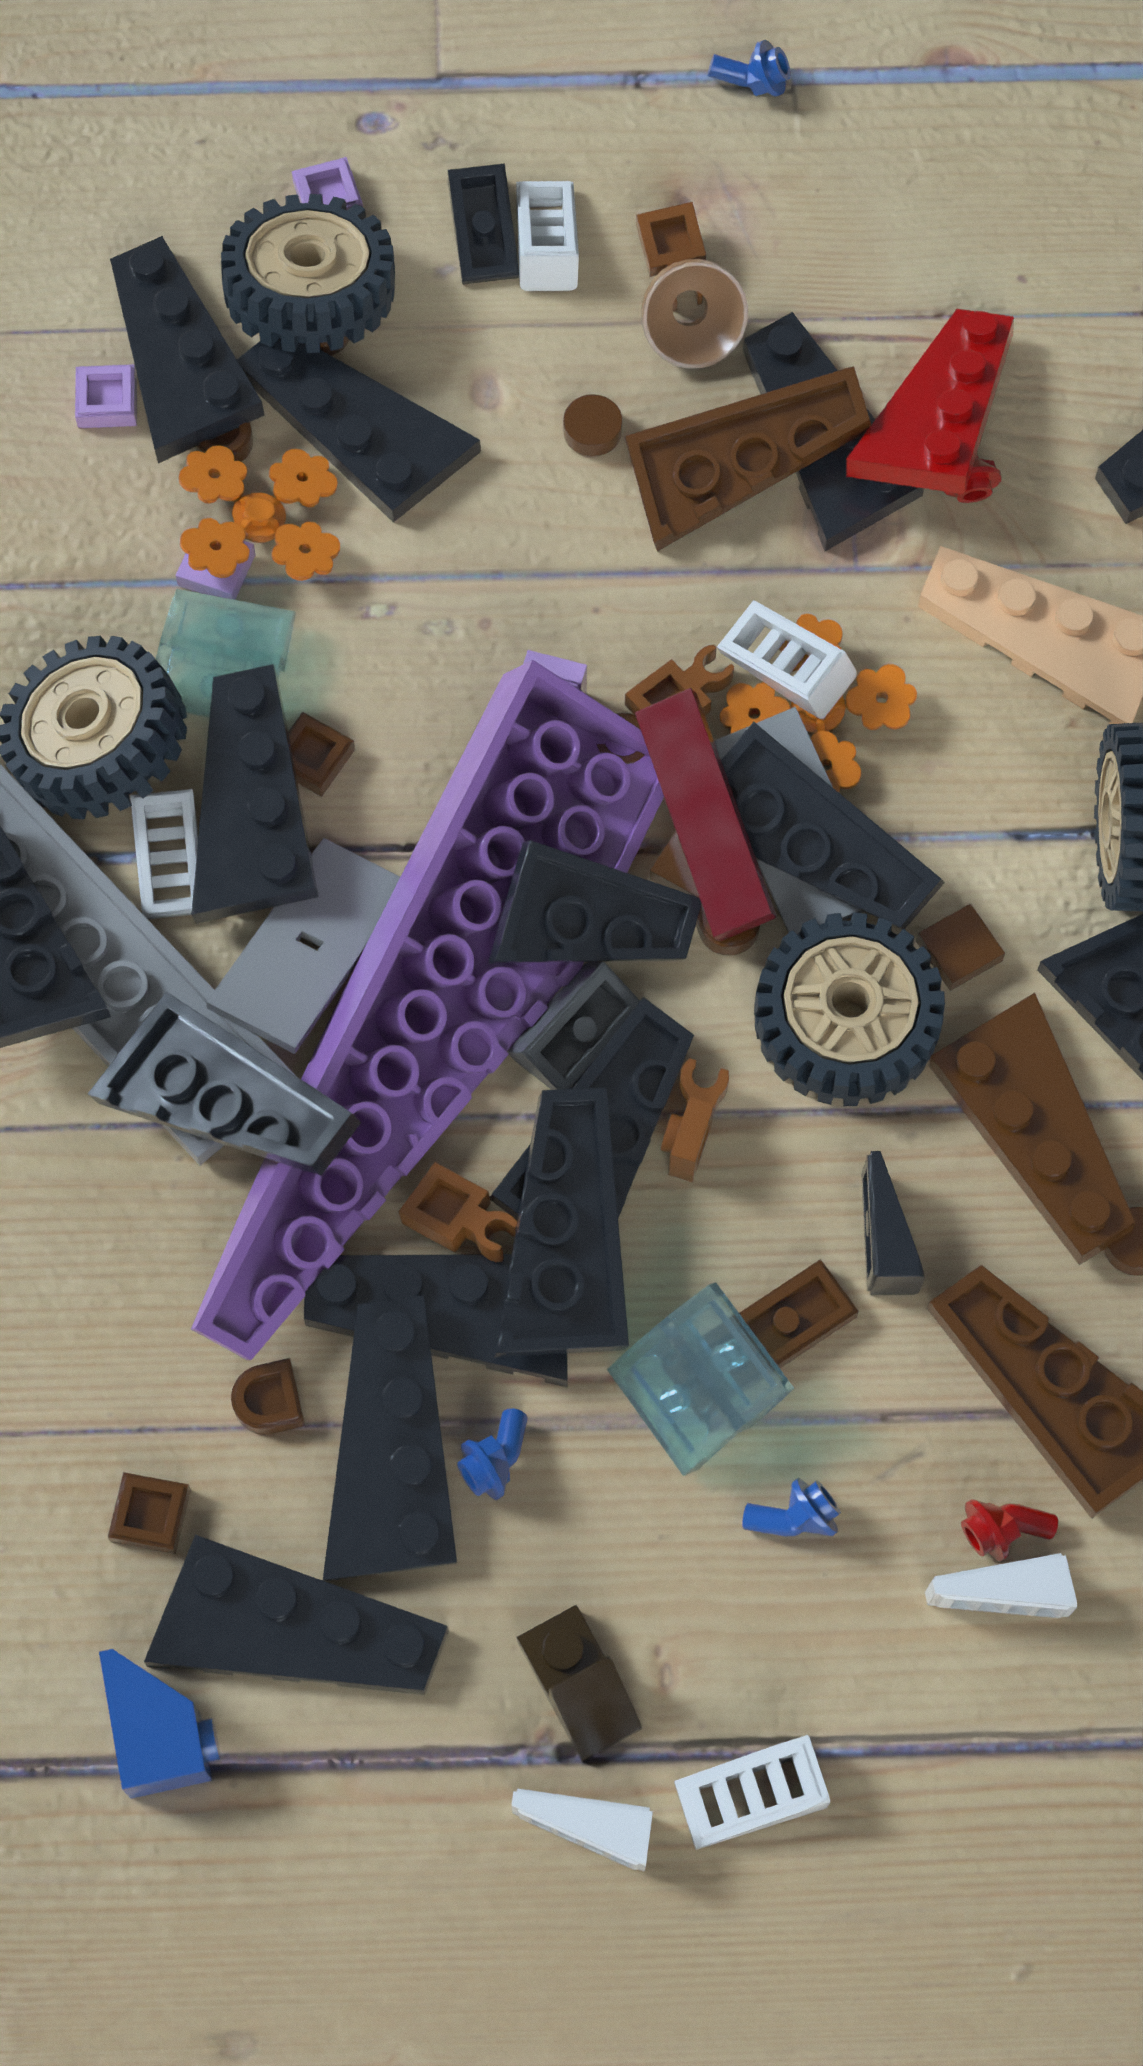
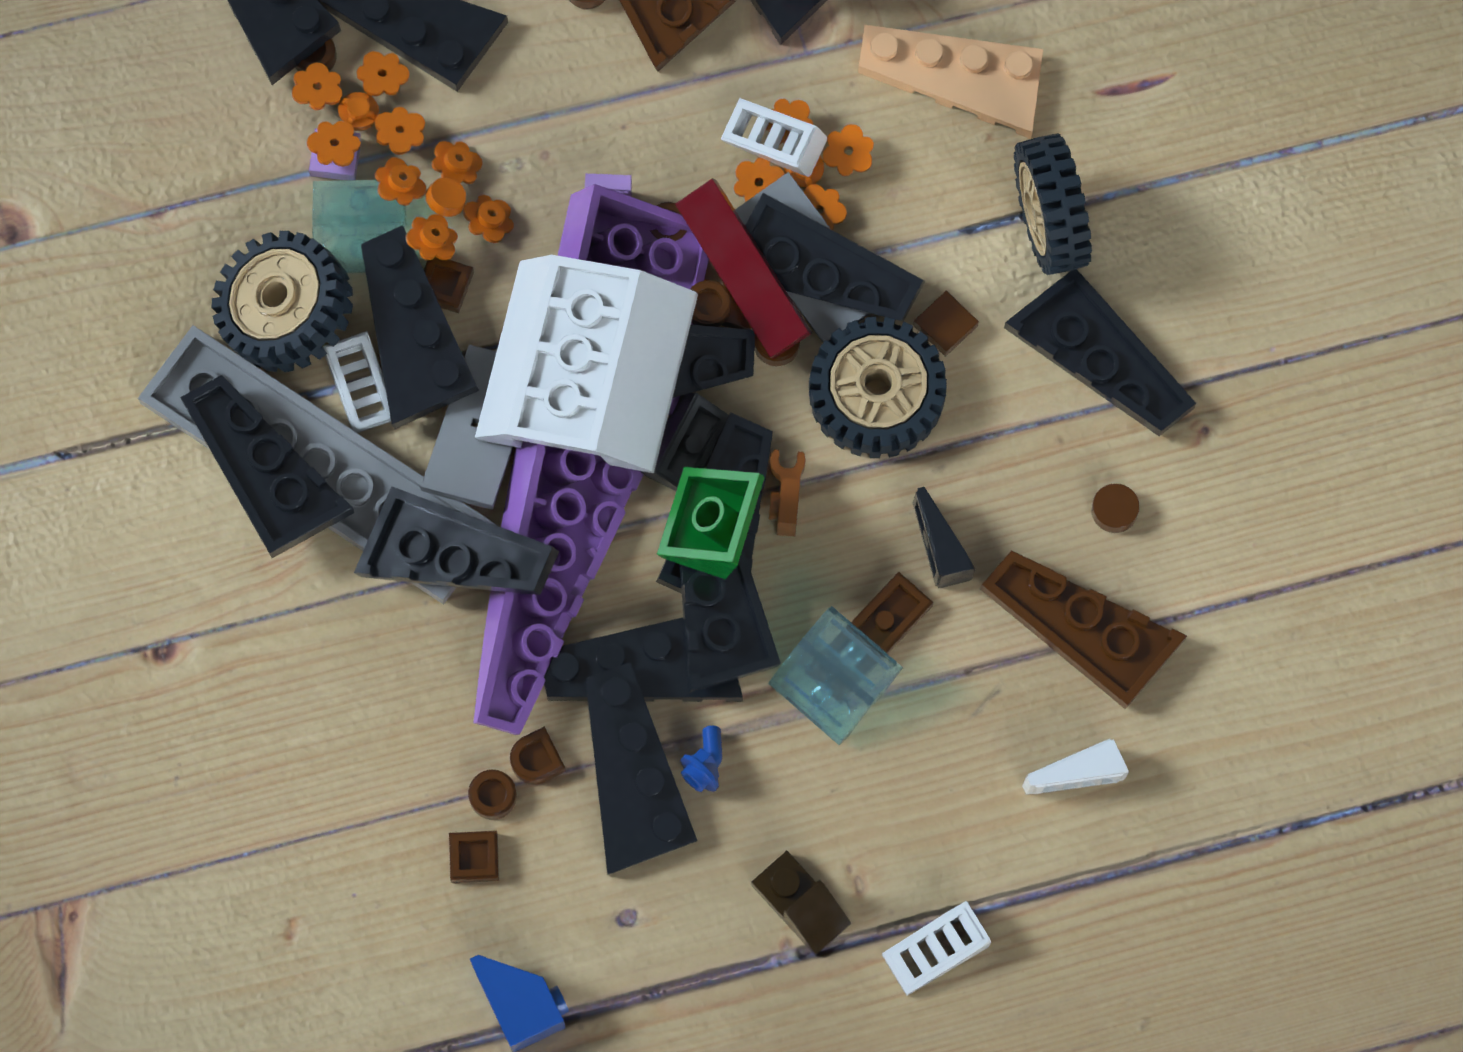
camera: 15 degrees left, 5 degrees up
(106, 396) = (217, 40): lavender tile -> none
(196, 1434) = (492, 794): none -> reddish brown tile
(277, 1623) = (576, 910): black wing -> none
(339, 644) = (445, 198): none -> orange plant
(454, 1209) = (632, 595): dark orange plate -> none
(469, 884) = (587, 360): none -> white slope
(576, 1126) = (710, 519): none -> green slope
(601, 1826) = (838, 995): white slope -> none
(648, 851) = (712, 304): none -> reddish brown tile
(672, 680) = (695, 173): dark orange plate -> none
(809, 1511) = (931, 749): blue plate -> none
(994, 1527) = (1060, 731): red plate -> none
(1032, 1117) = (1023, 435): reddish brown wing -> none

